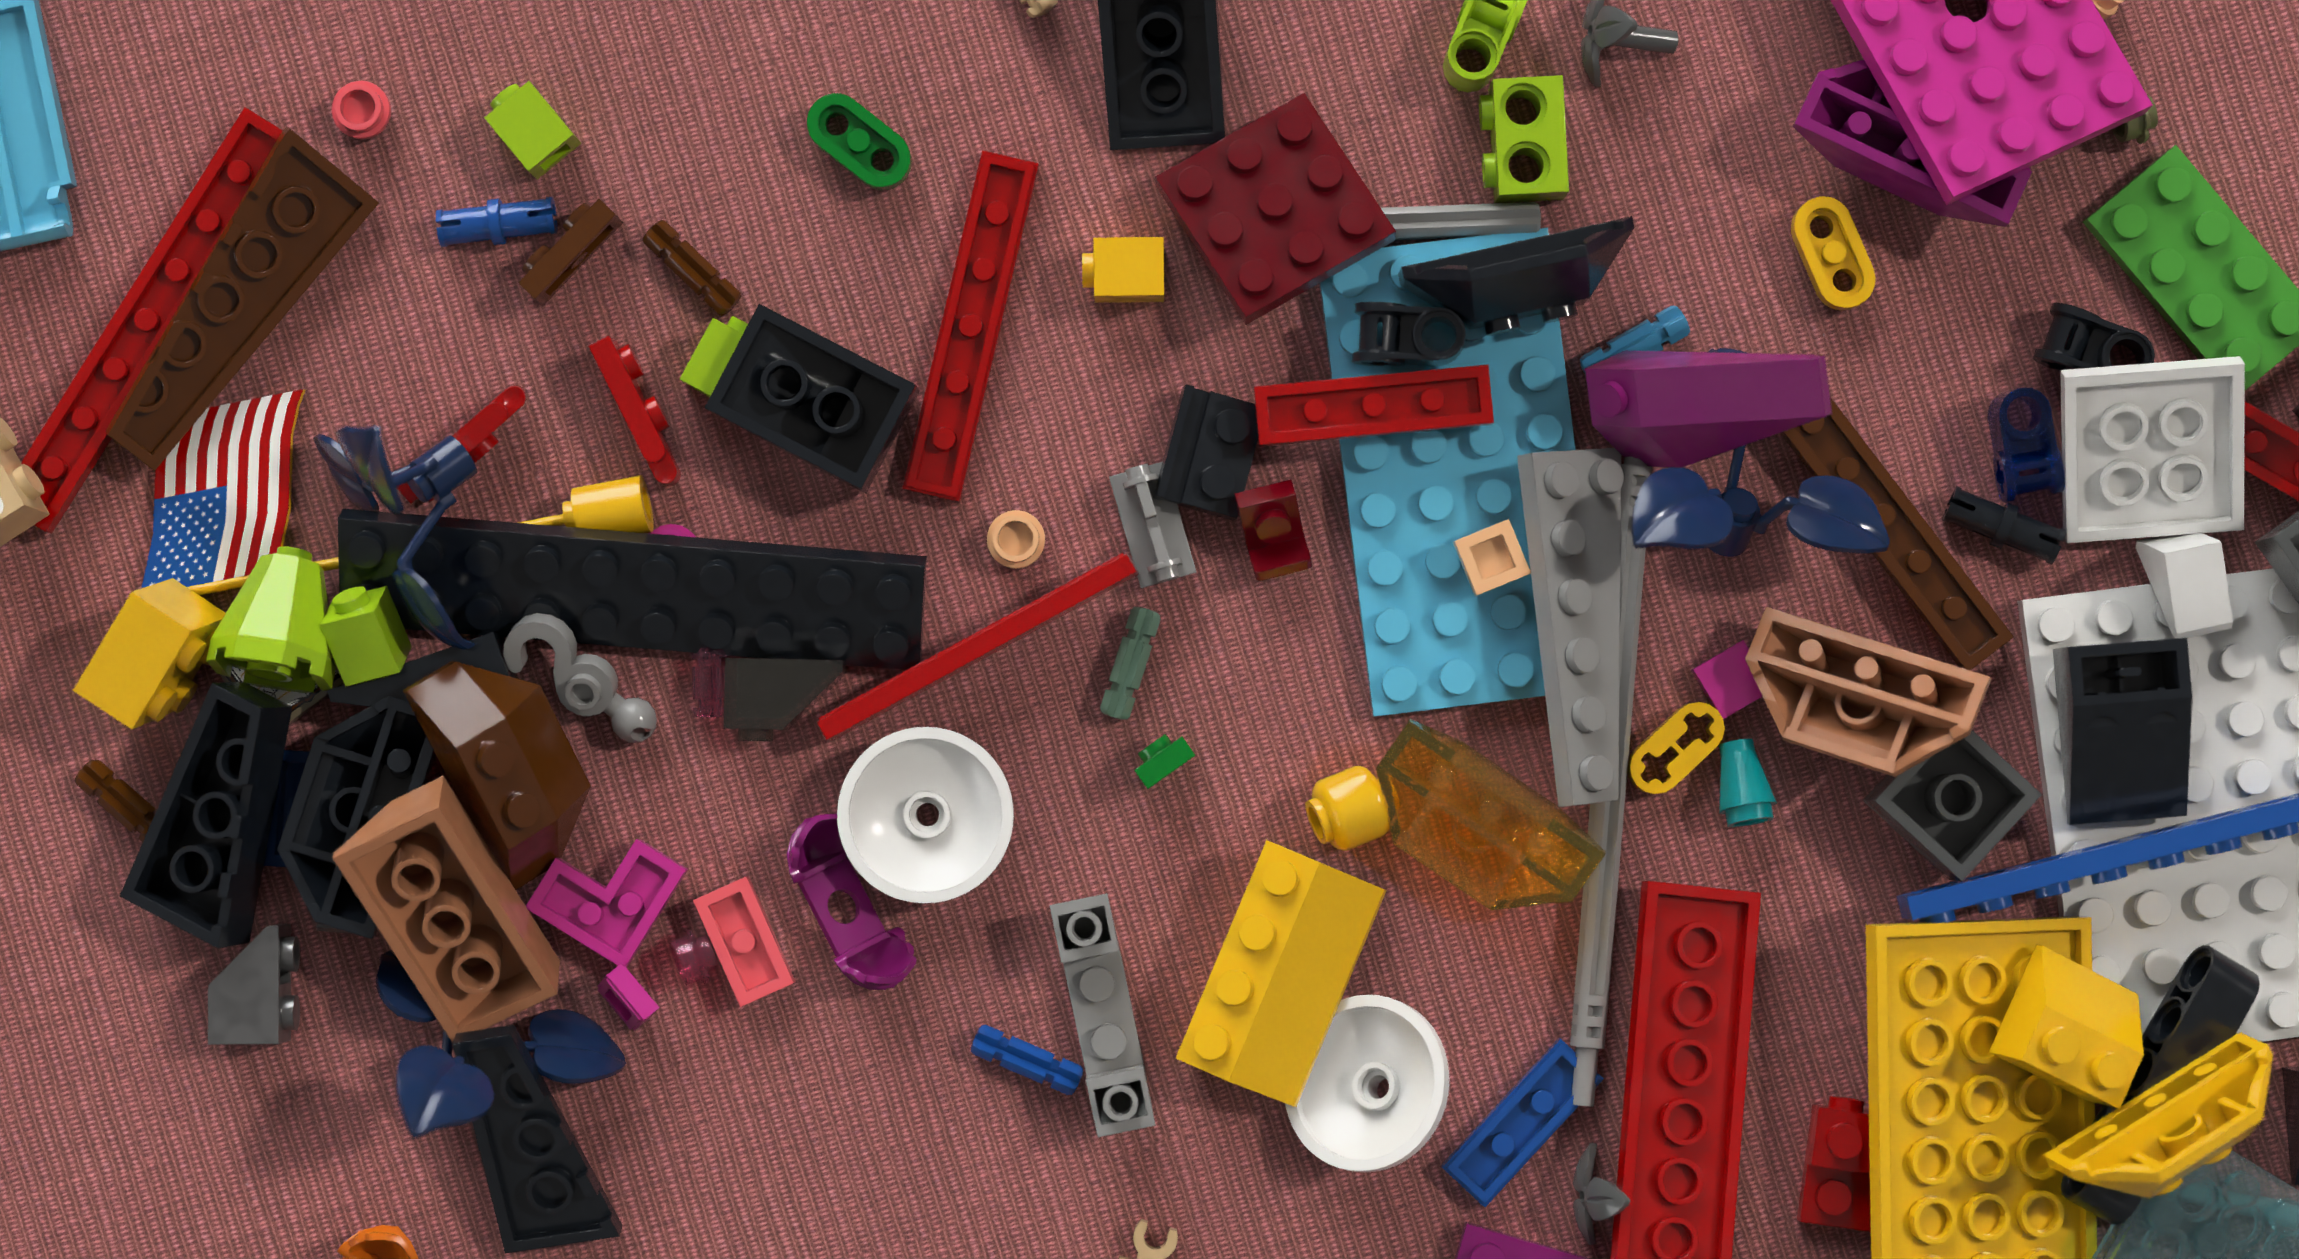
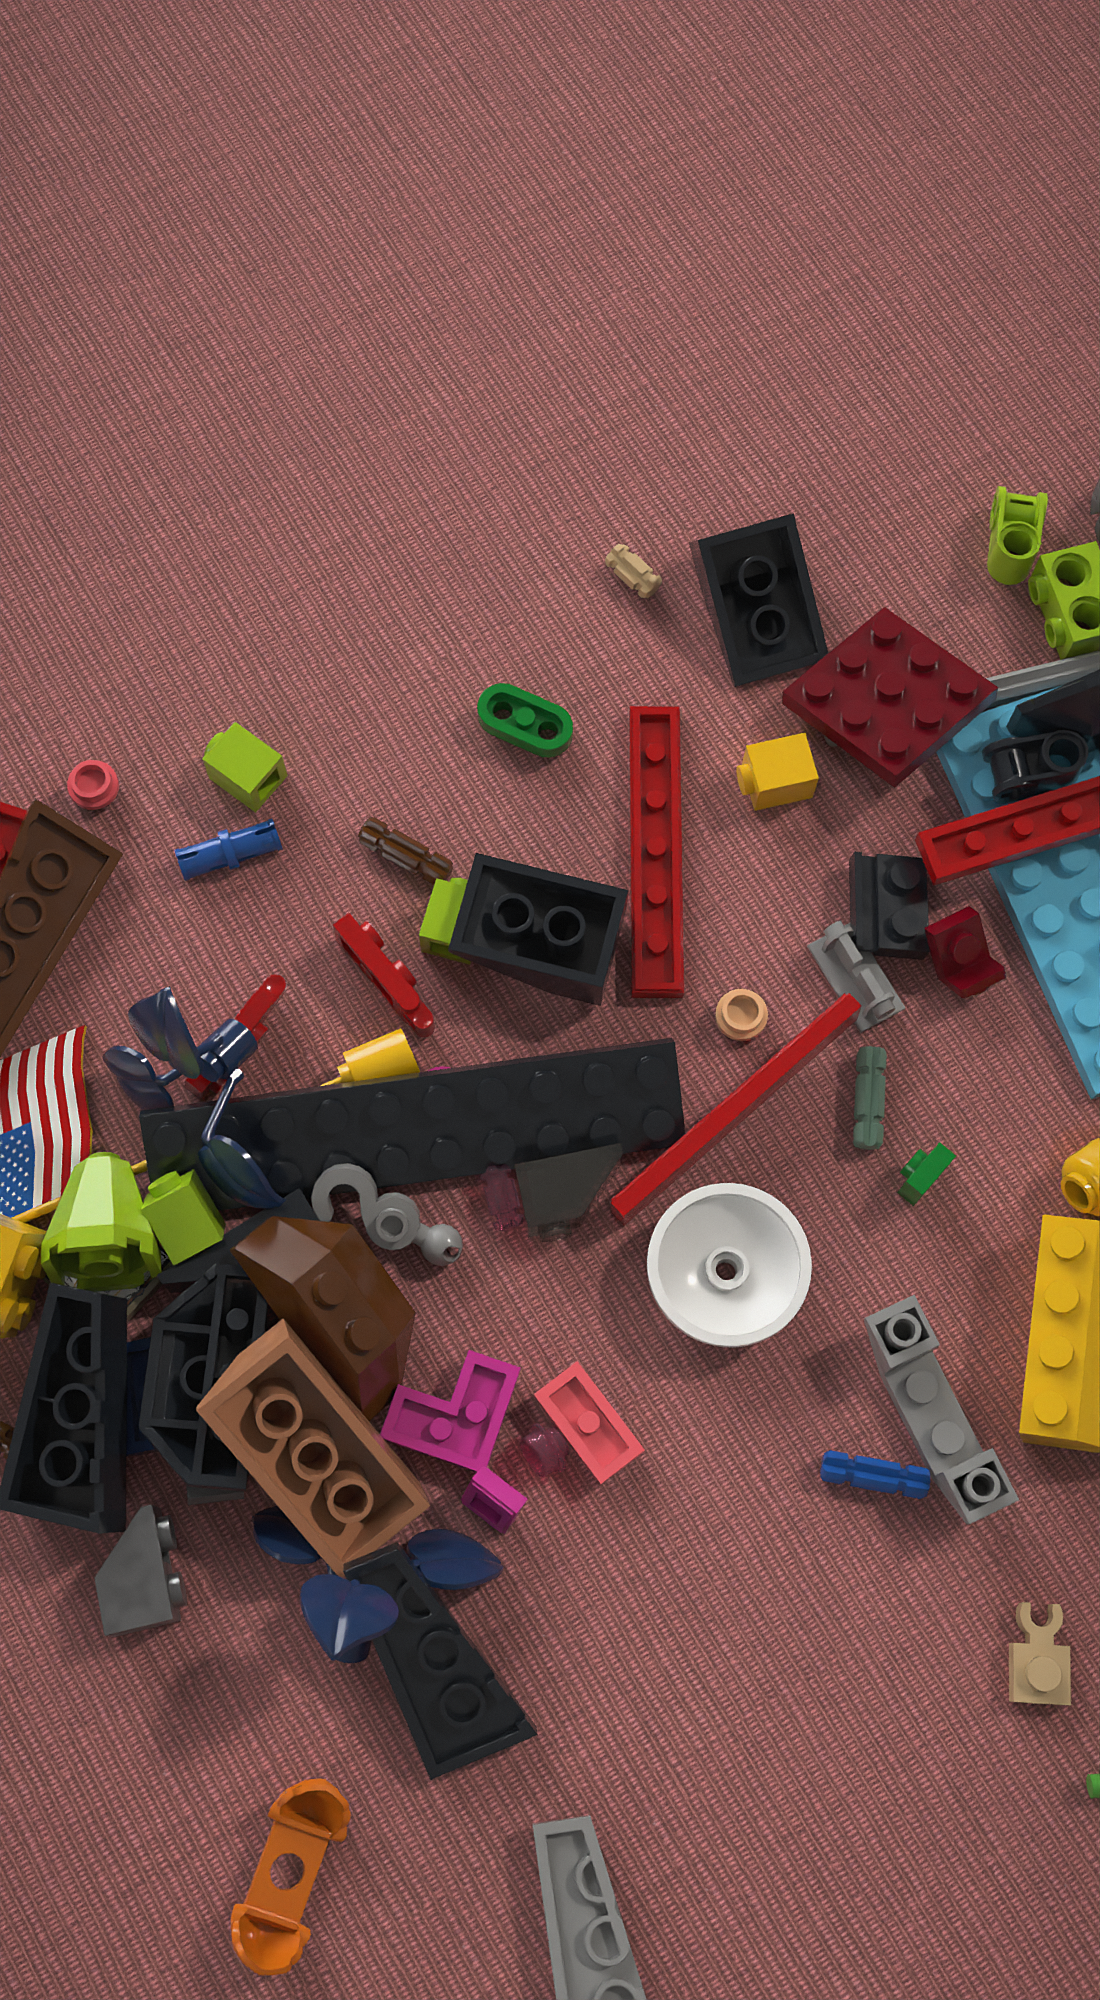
camera: 20 degrees left, 15 degrees down
(585, 232) = (307, 841): reddish brown plate -> none
(863, 947) = (699, 1405): magenta piece -> none

